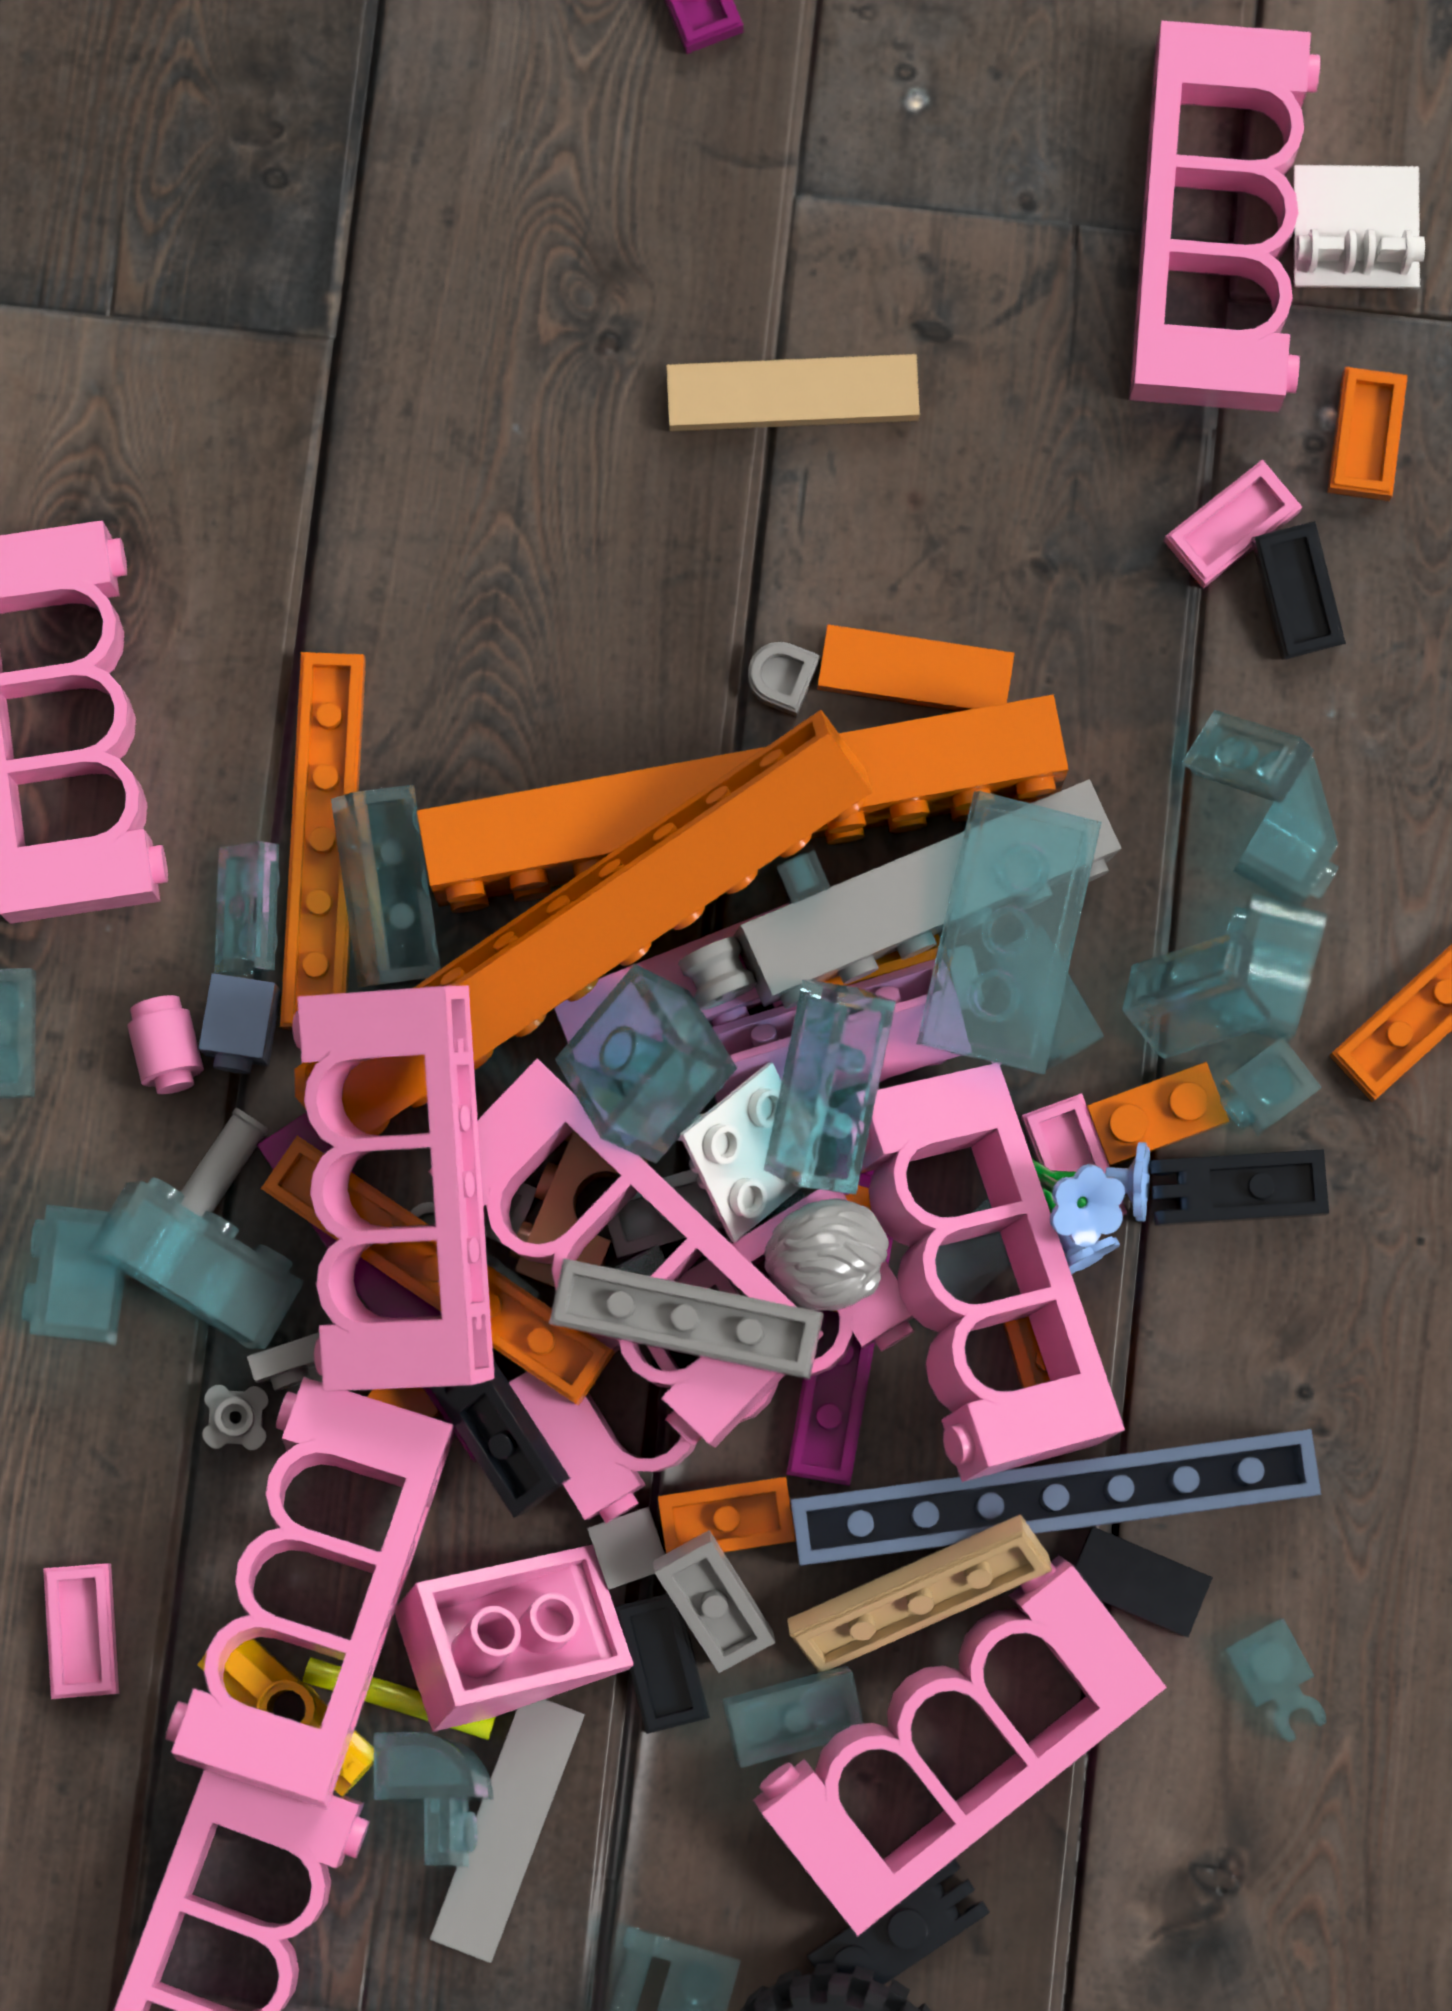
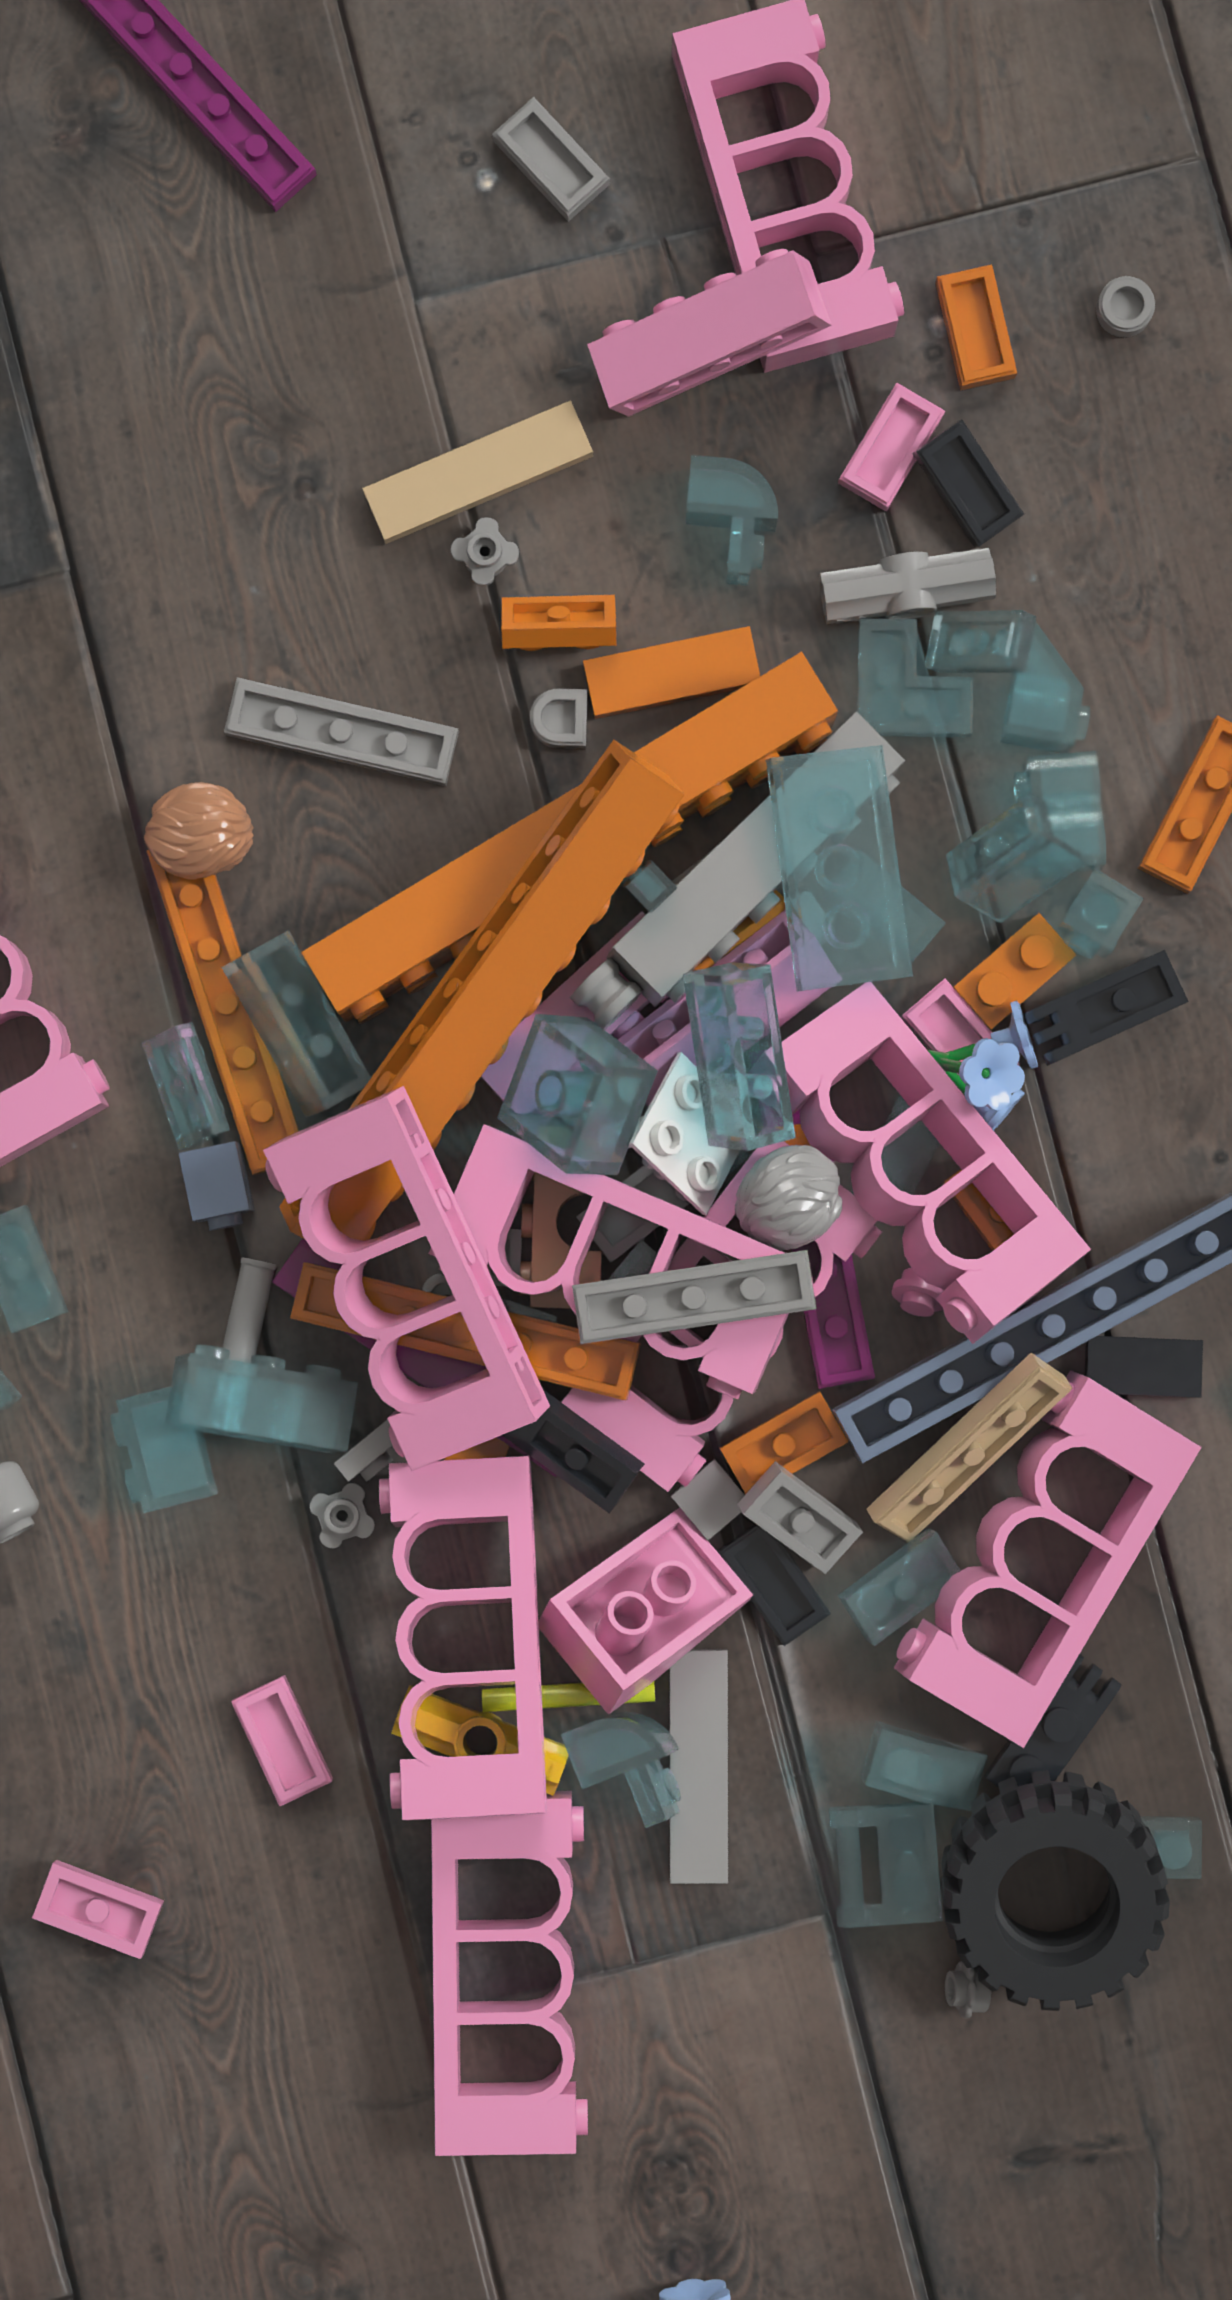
camera: 25 degrees left, 5 degrees up
(164, 1044) = (161, 1226): bright pink brick -> none
(362, 651) = (198, 831): none -> nougat hair
(549, 605) = (341, 731): none -> light grey tile
(745, 1919) = (922, 1767): none -> clear light blue slope
(766, 493) = (481, 567): none -> light grey plate
(817, 575) = (558, 622): none -> orange plate
(924, 1413) = (916, 1295): none -> bright pink plate
(990, 103) = (551, 159): none -> light grey tile
(1049, 516) = (737, 498): none -> clear light blue brick
(1083, 335) = (709, 332): none -> bright pink brick
(1142, 788) = (896, 698): none -> clear light blue plate
(1195, 672) = (907, 585): none -> light grey piece
(1357, 227) = (903, 151): white hinge -> none

